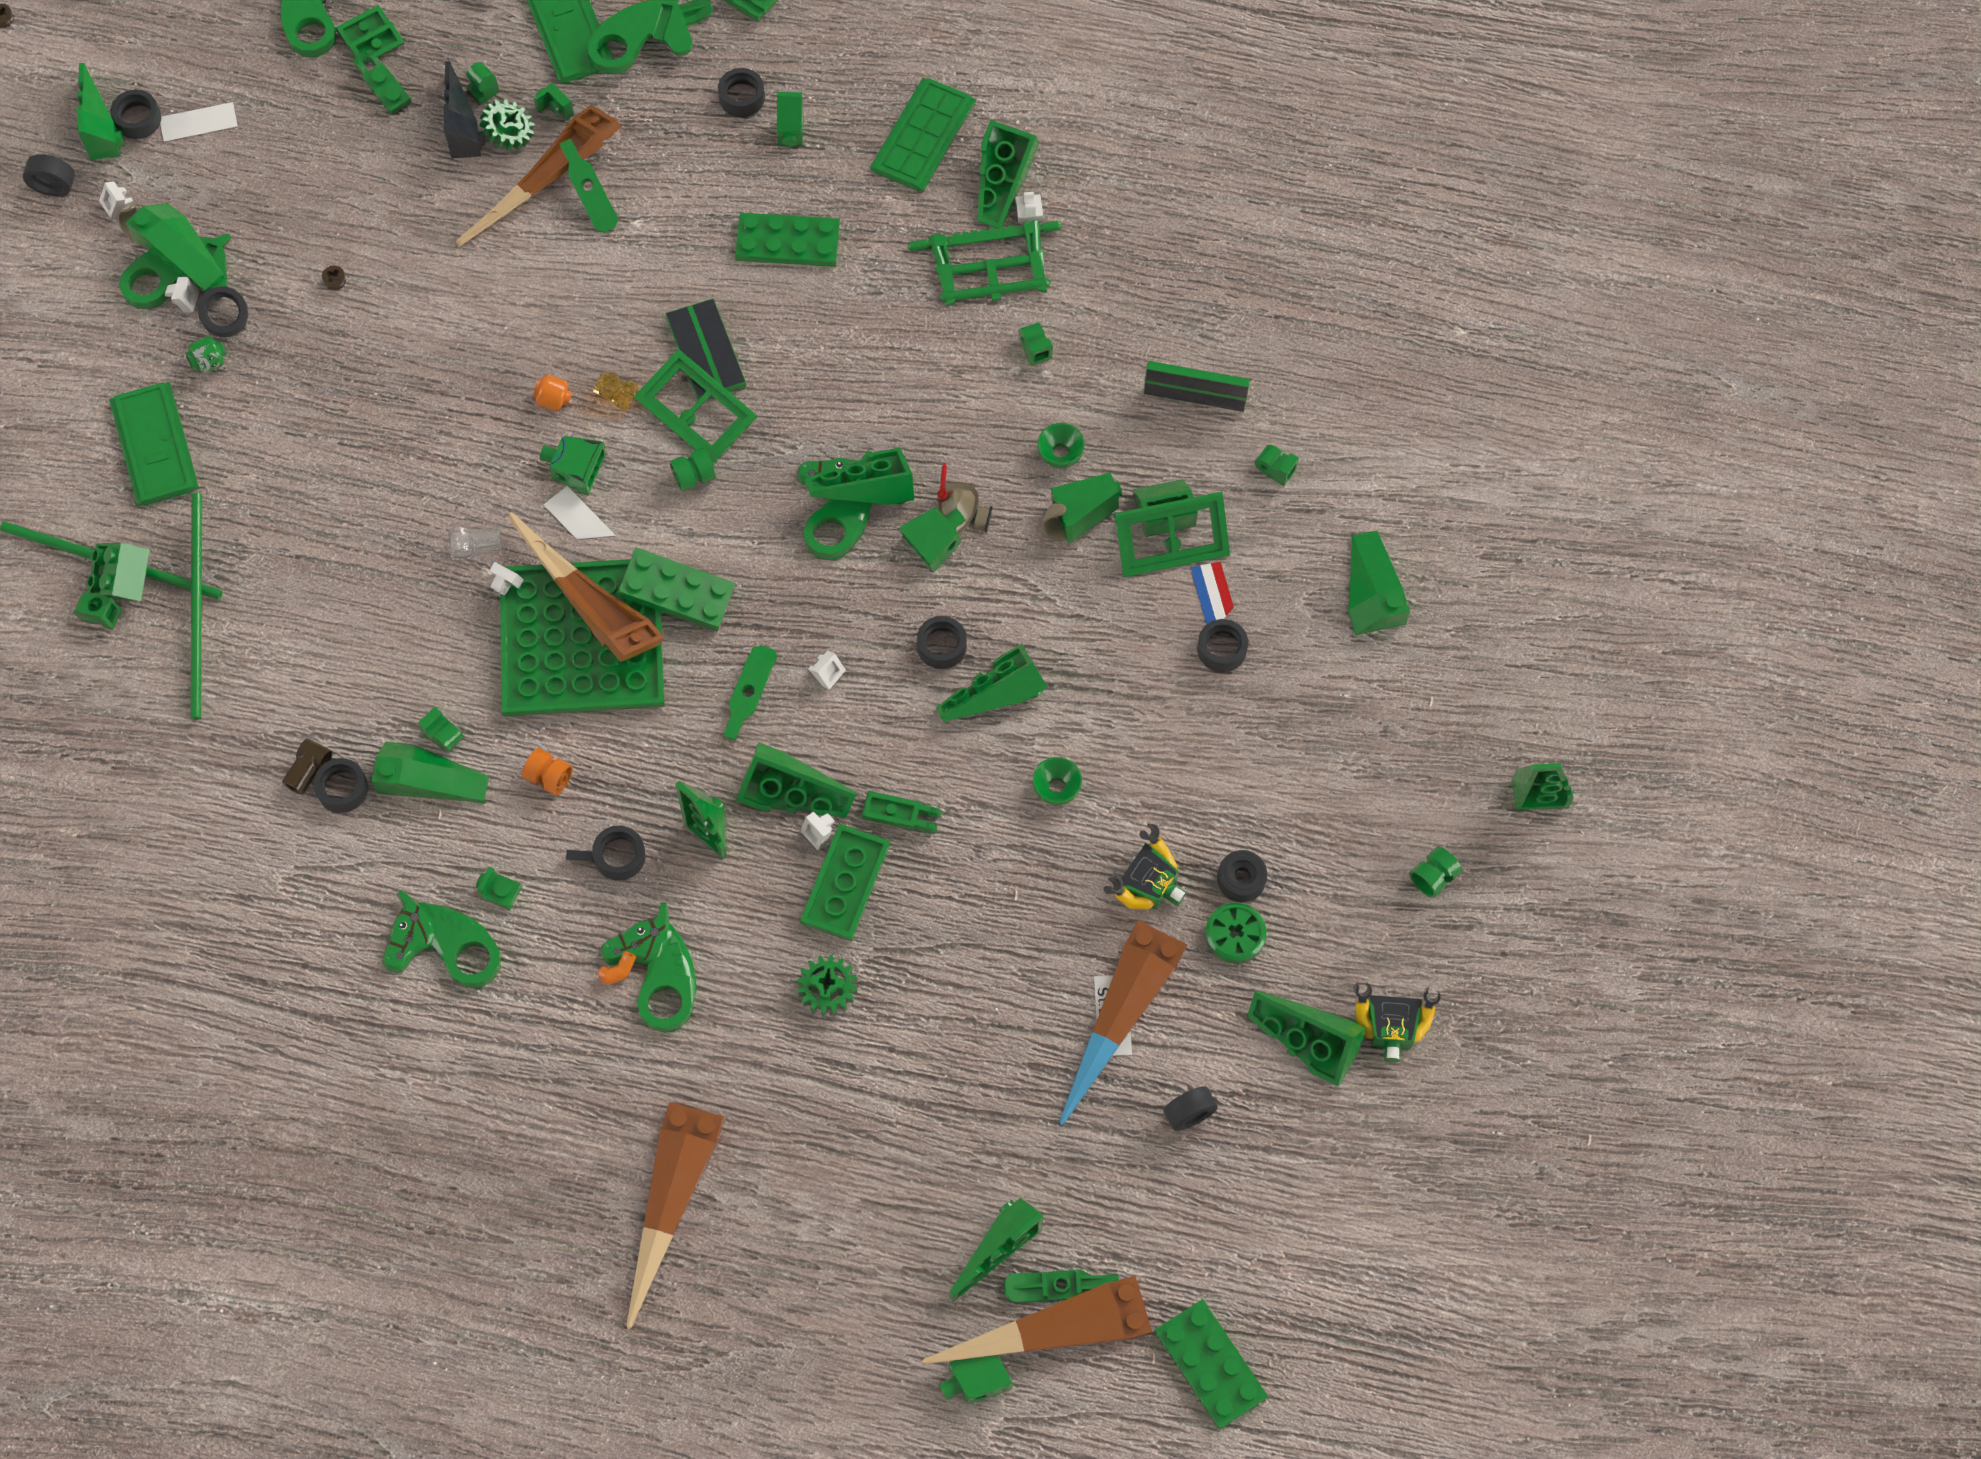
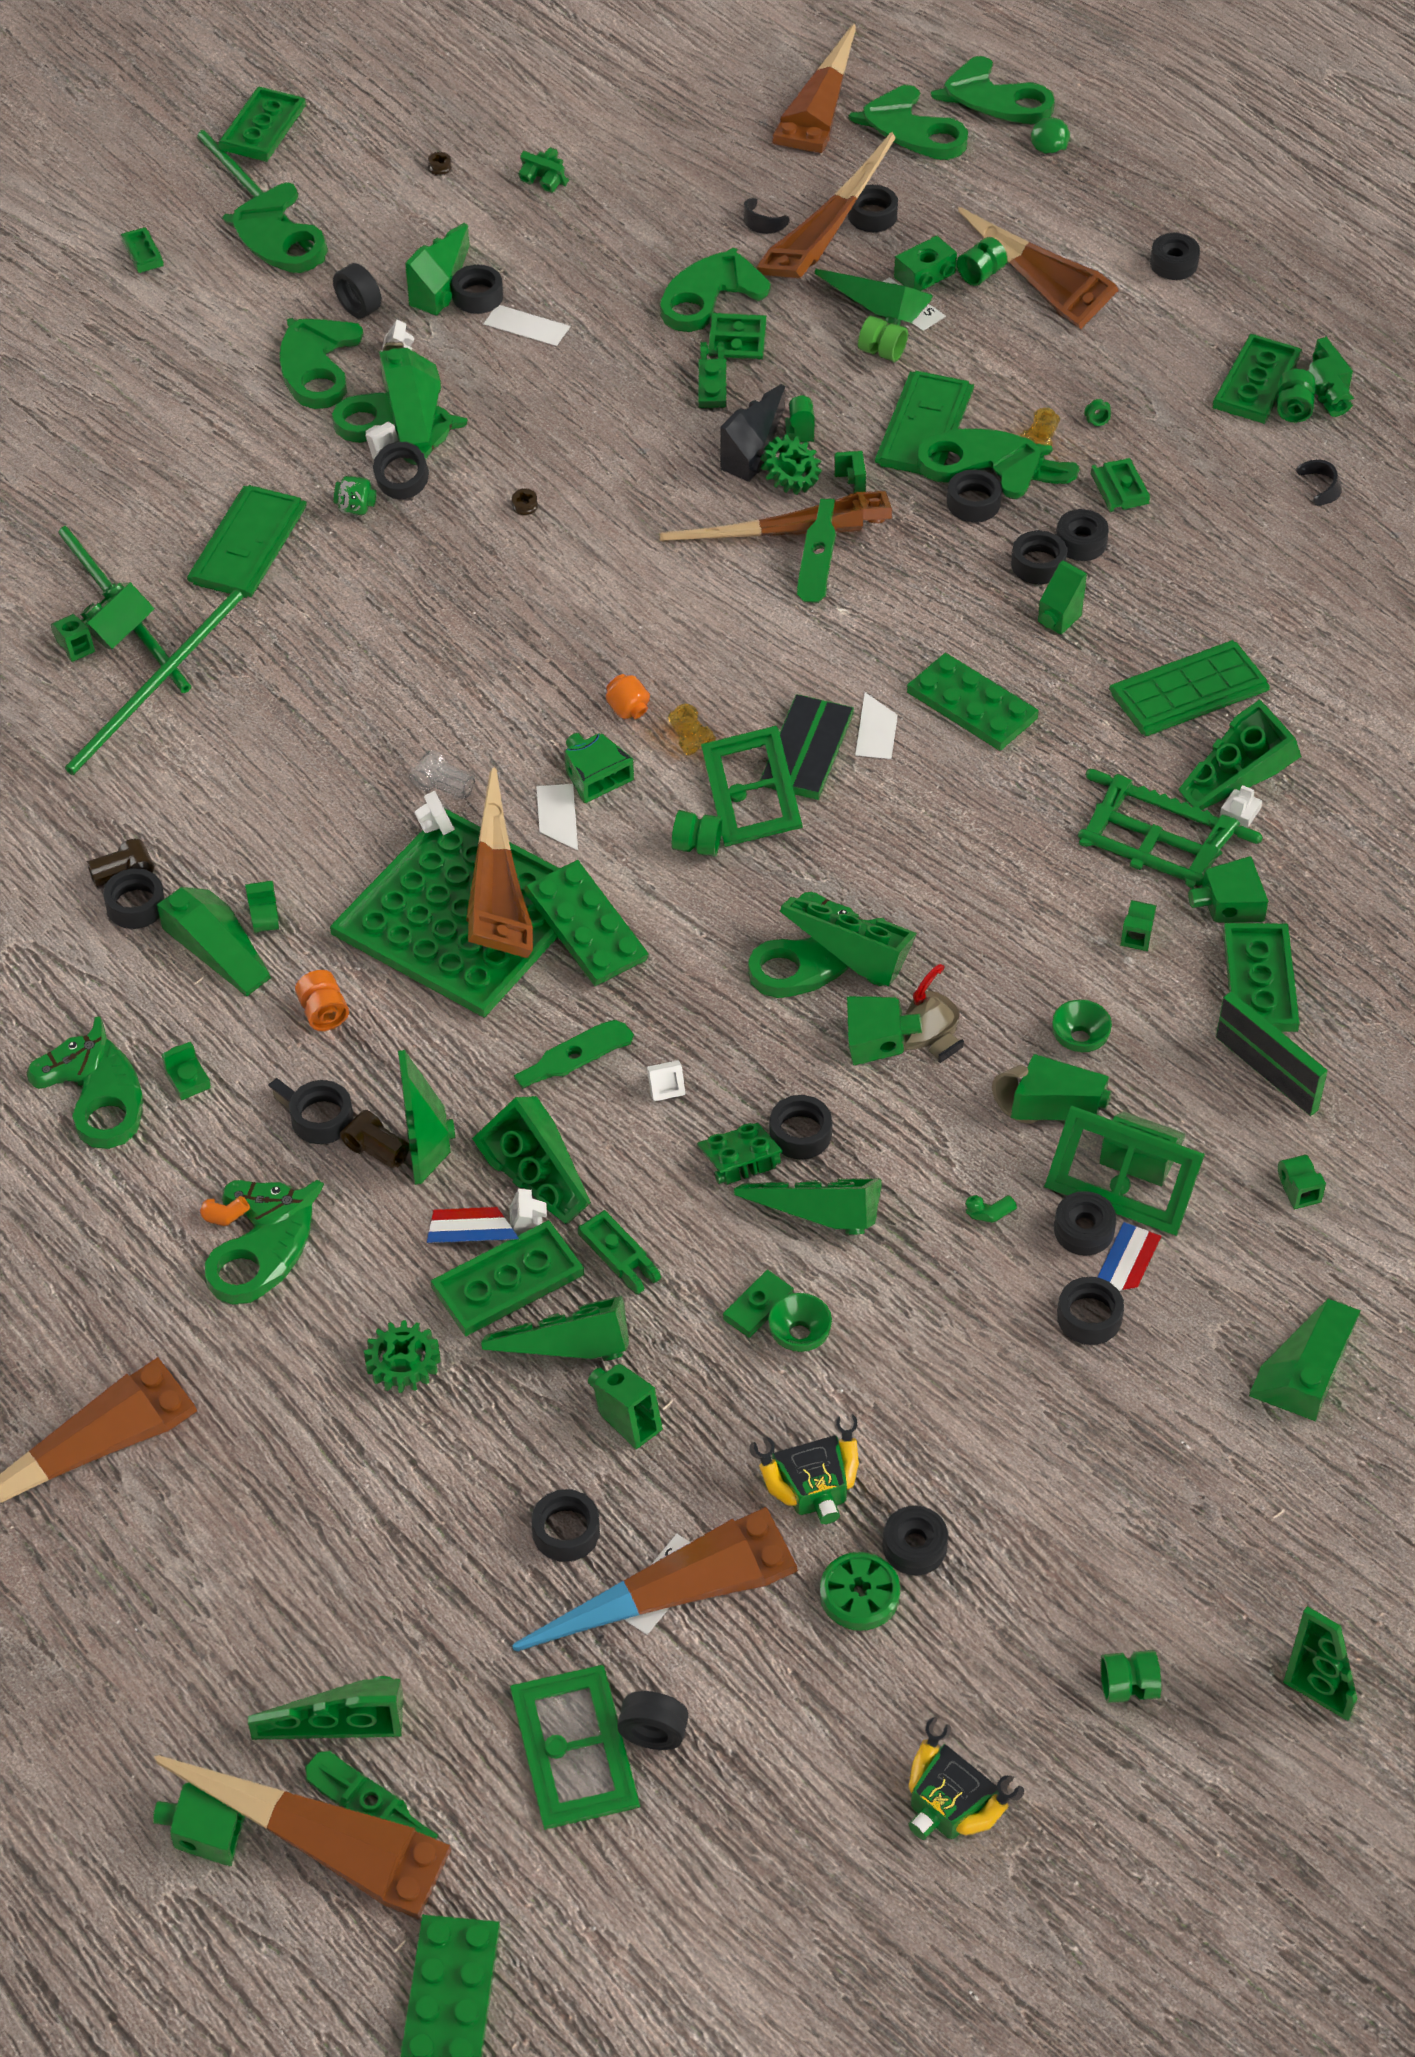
camera: 40 degrees right, 15 degrees down
(56, 262) = (306, 359): none -> green animal
(656, 53) = (974, 481): none -> black tyre
(664, 847) = (369, 1135): none -> dark brown piece
(739, 304) = (876, 730): none -> white sticker
(760, 42) = (1083, 522): none -> black tyre
(788, 863) = (469, 1225): none -> sticker
(917, 686) = (740, 1147): none -> green hinge
(927, 886) = (590, 1333): none -> green wedge
(997, 914) = (627, 1403): none -> green torso
(1016, 785) = (754, 1305): none -> green plate
(1030, 1001) = (565, 1501): none -> black tyre
(1076, 279) = (1232, 893): none -> green torso
(1104, 620) = (990, 1213): none -> green arm
(1139, 328) = (1263, 971): none -> green plate
(1150, 1158) = (574, 1747): none -> green door
(1168, 600) = (1080, 1240): none -> black tyre
(1316, 1037) = (855, 1751): green wedge -> none

